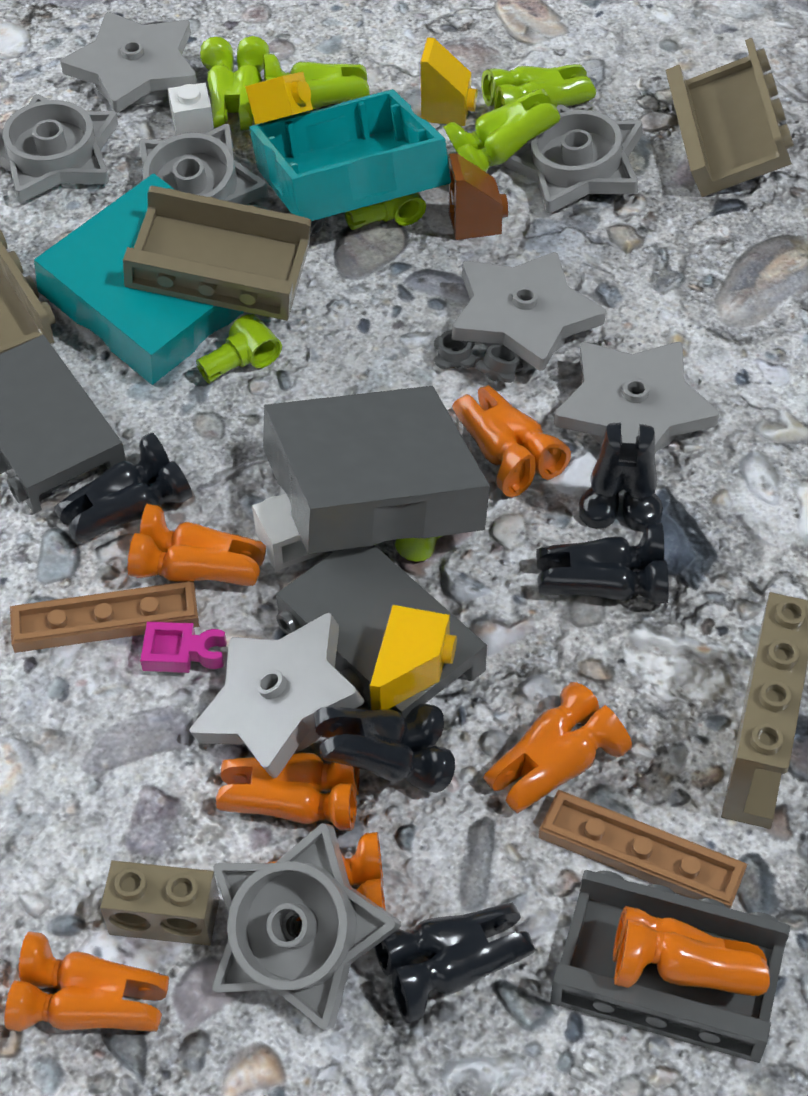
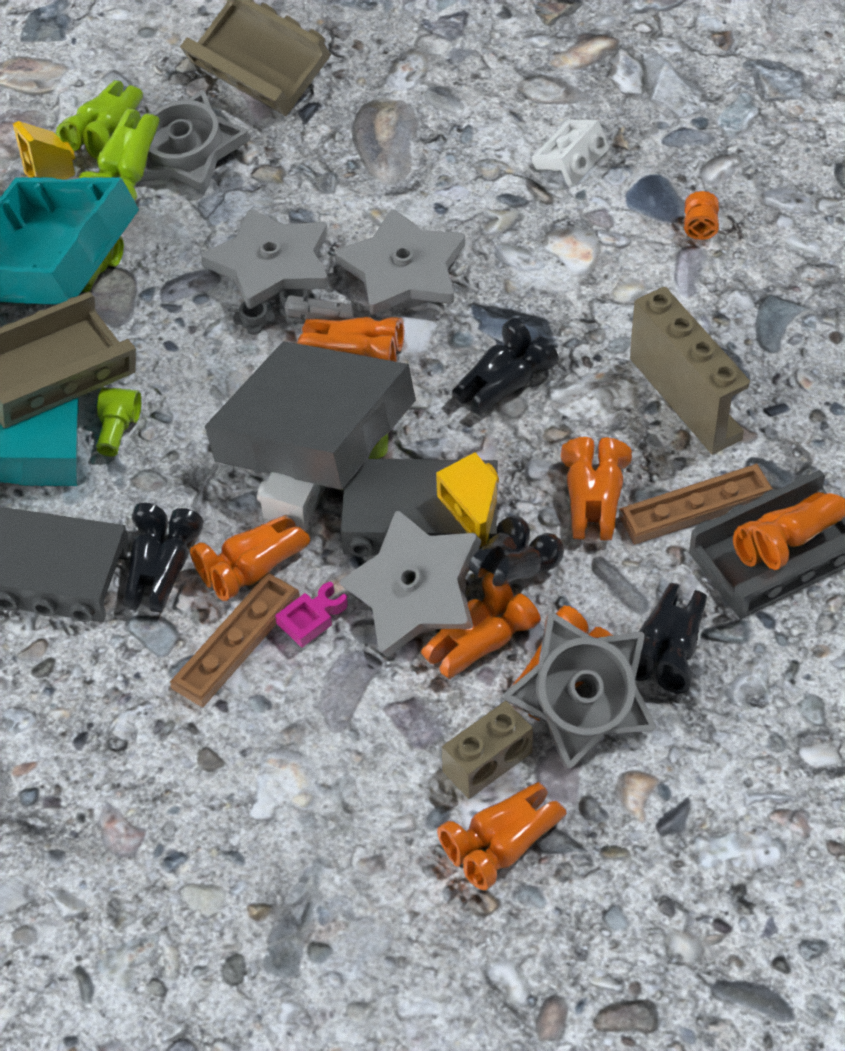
camera: 45 degrees left, 0 degrees up
(474, 200) = (159, 216): dark orange slope -> none
(507, 384) = (317, 309): none -> light grey axle
(623, 468) = (462, 310): black piece -> none

